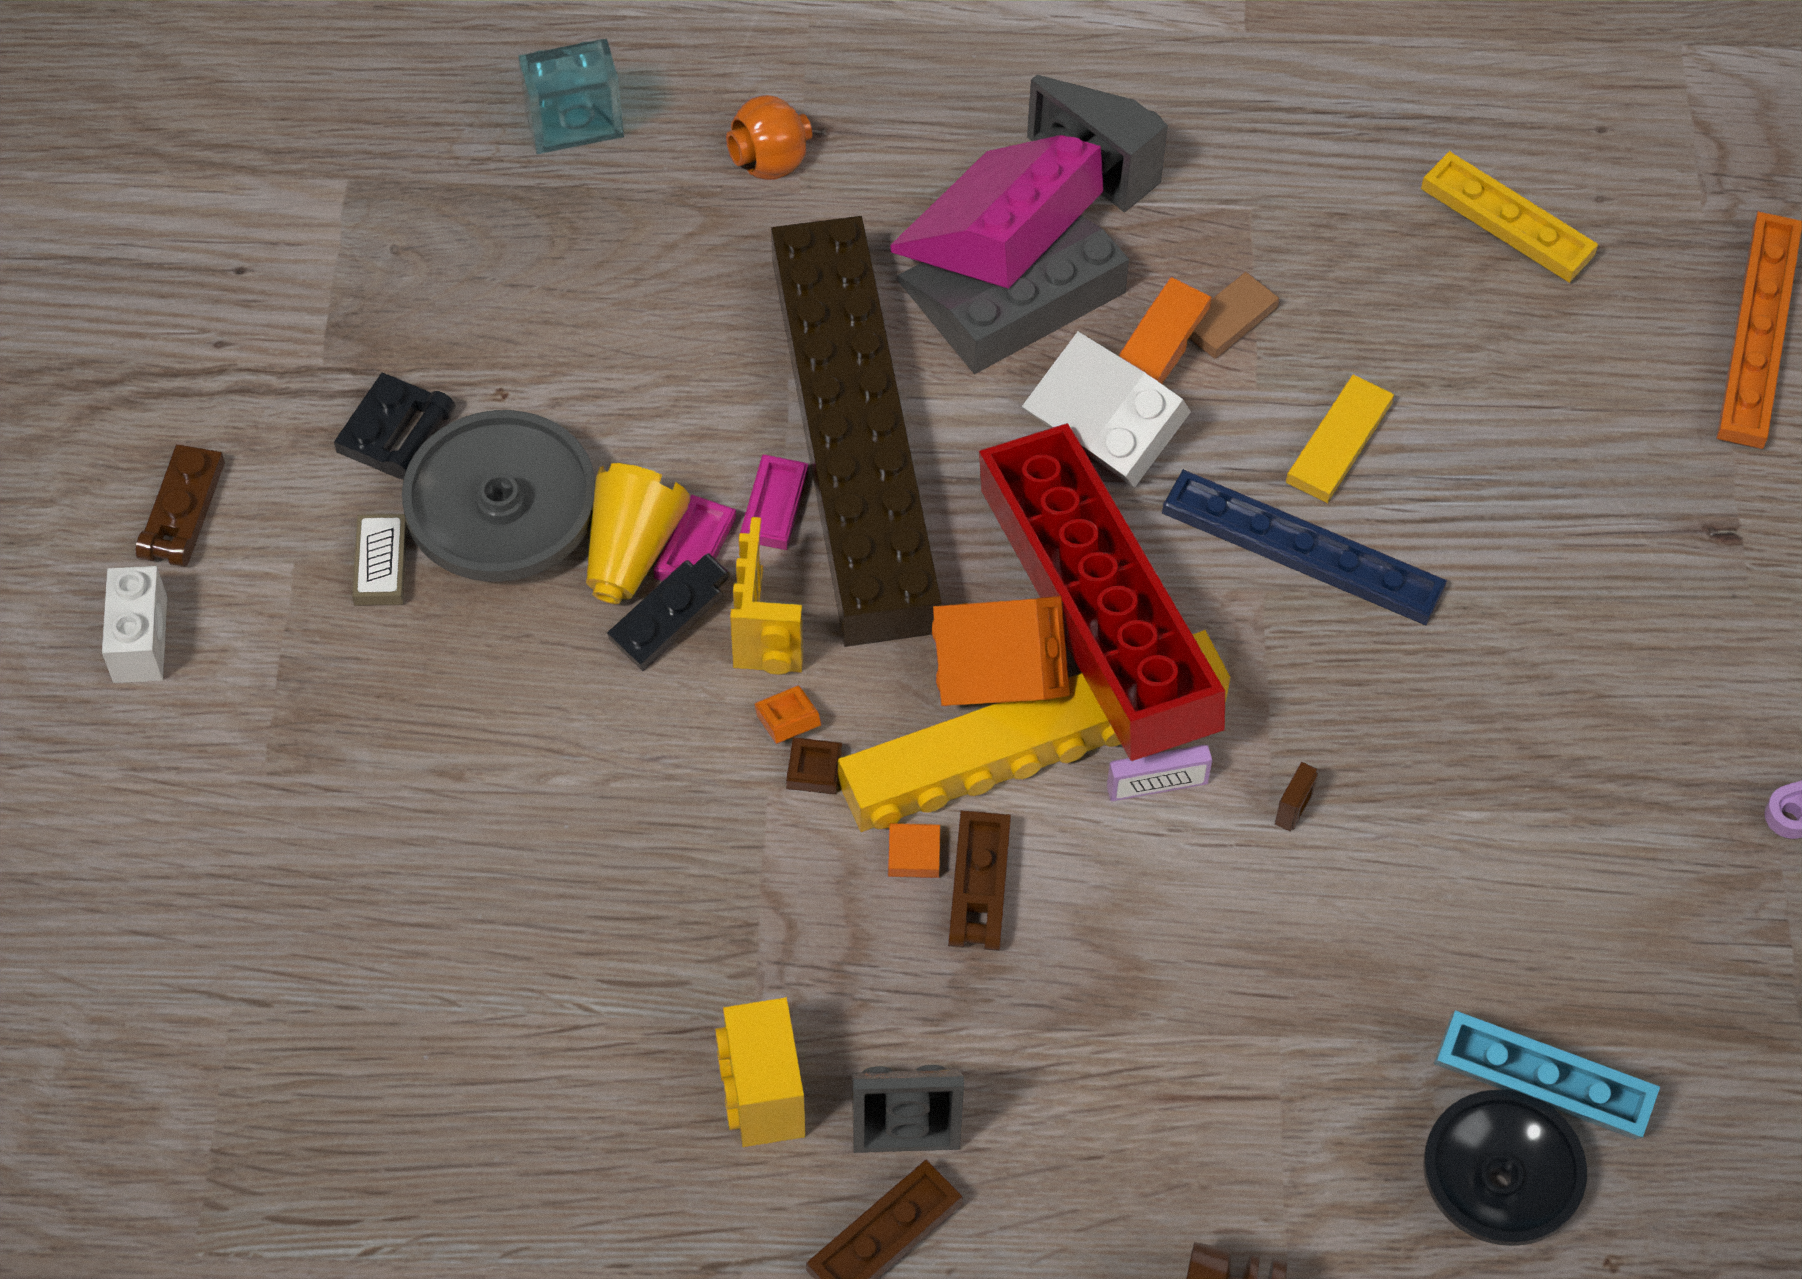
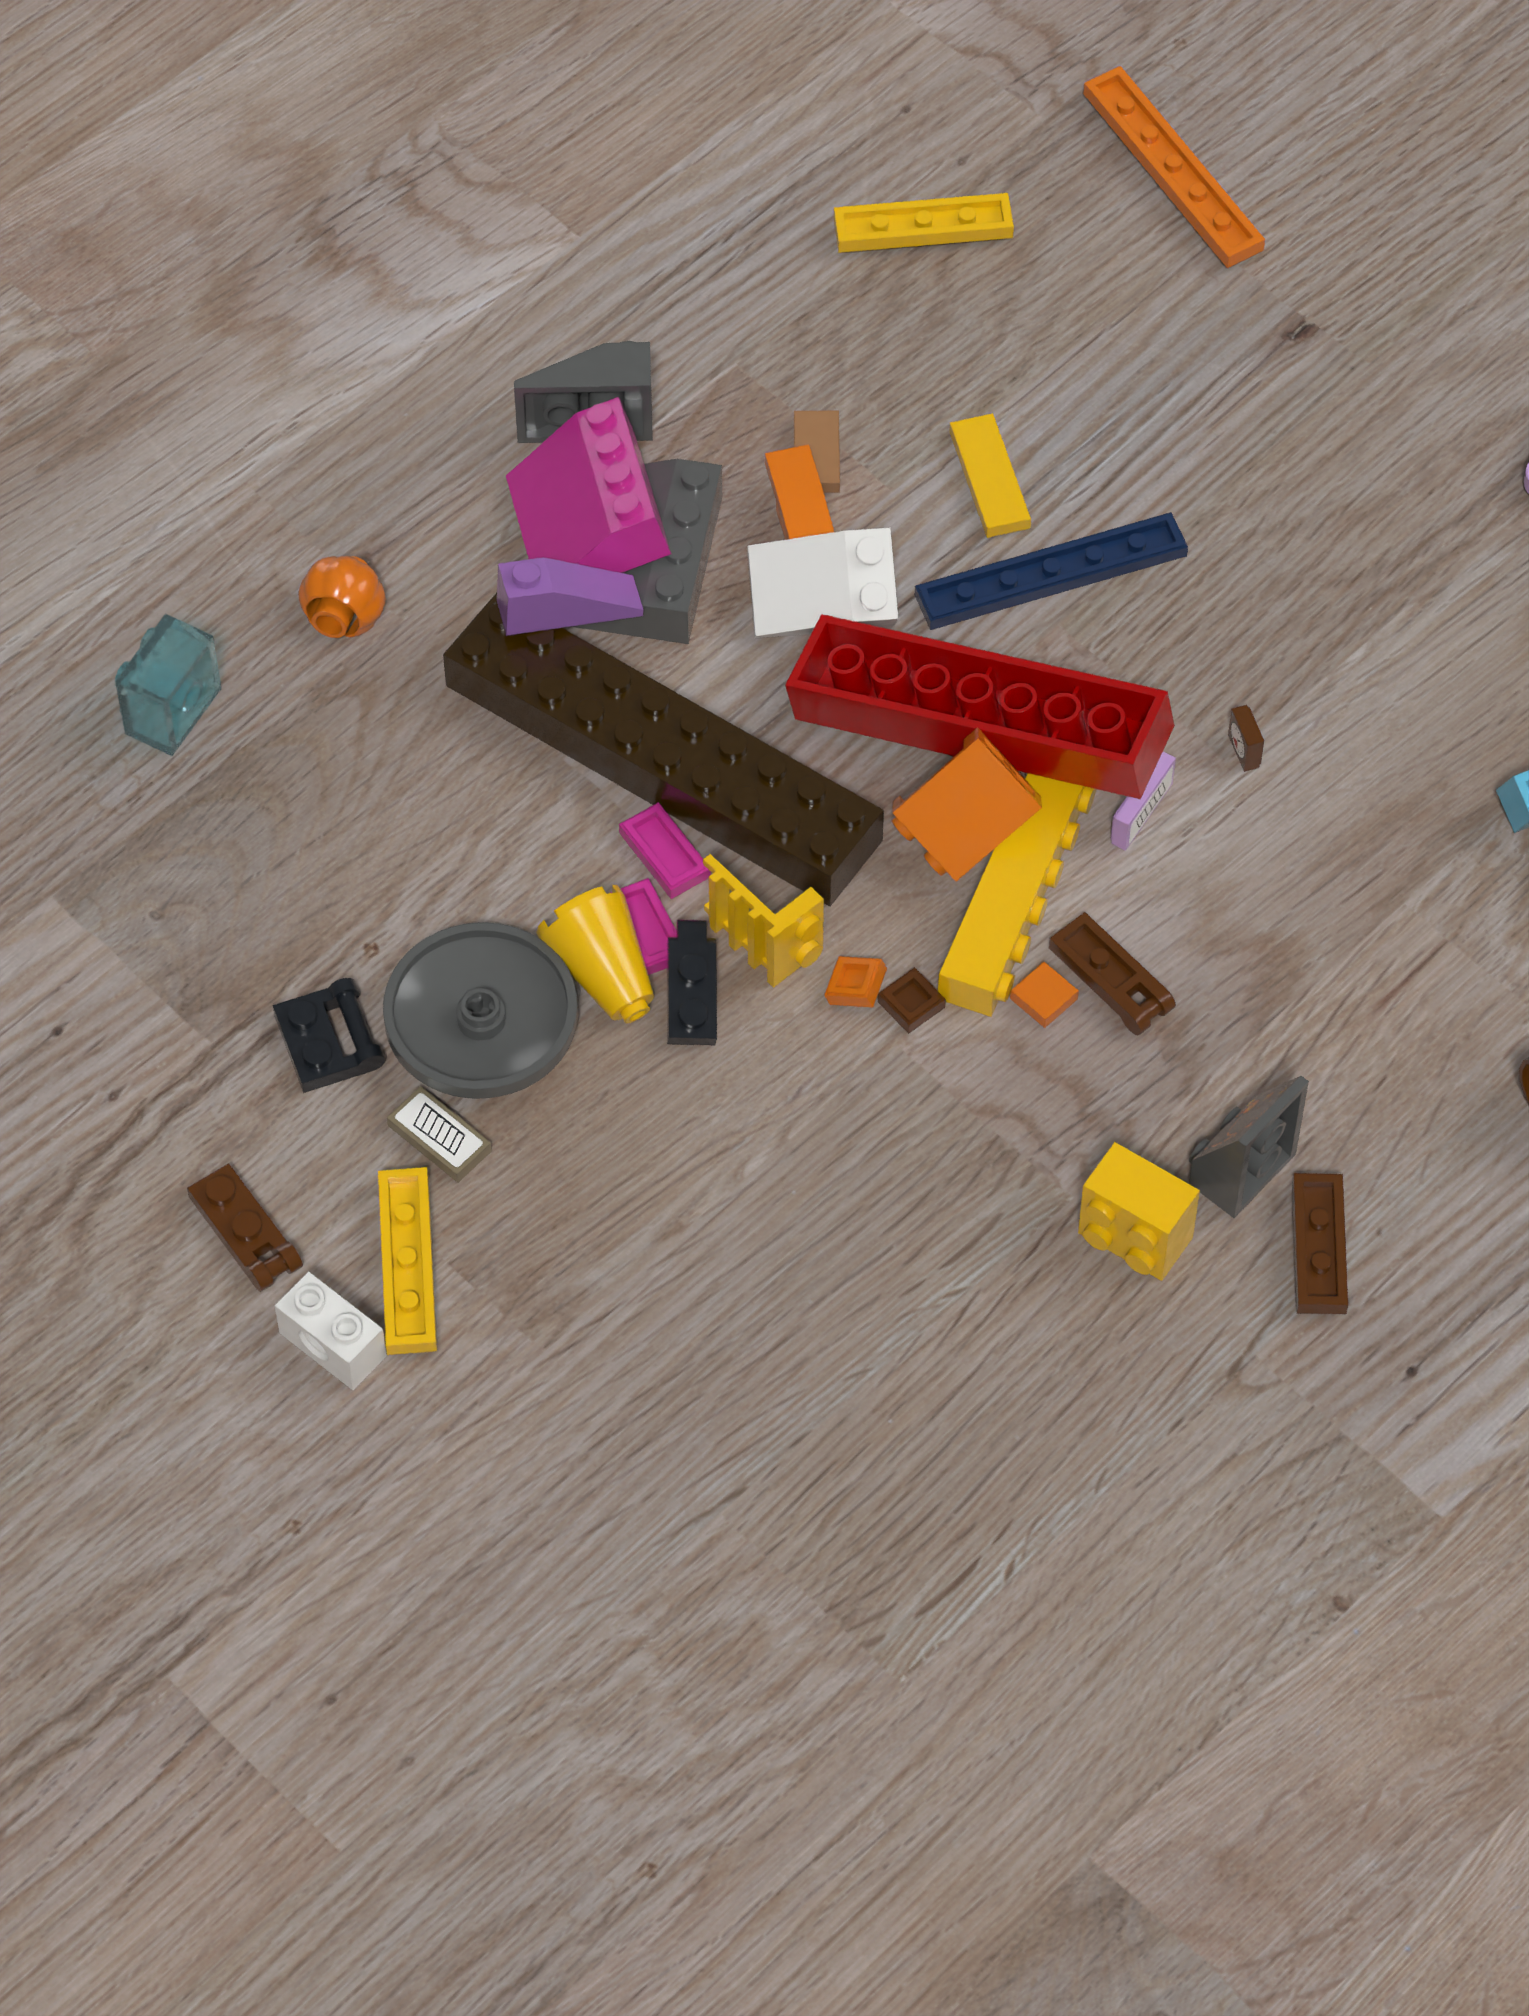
camera: 45 degrees left, 0 degrees up
(246, 625) = (407, 1261): none -> yellow plate
(891, 250) = (562, 594): none -> medium lavender slope

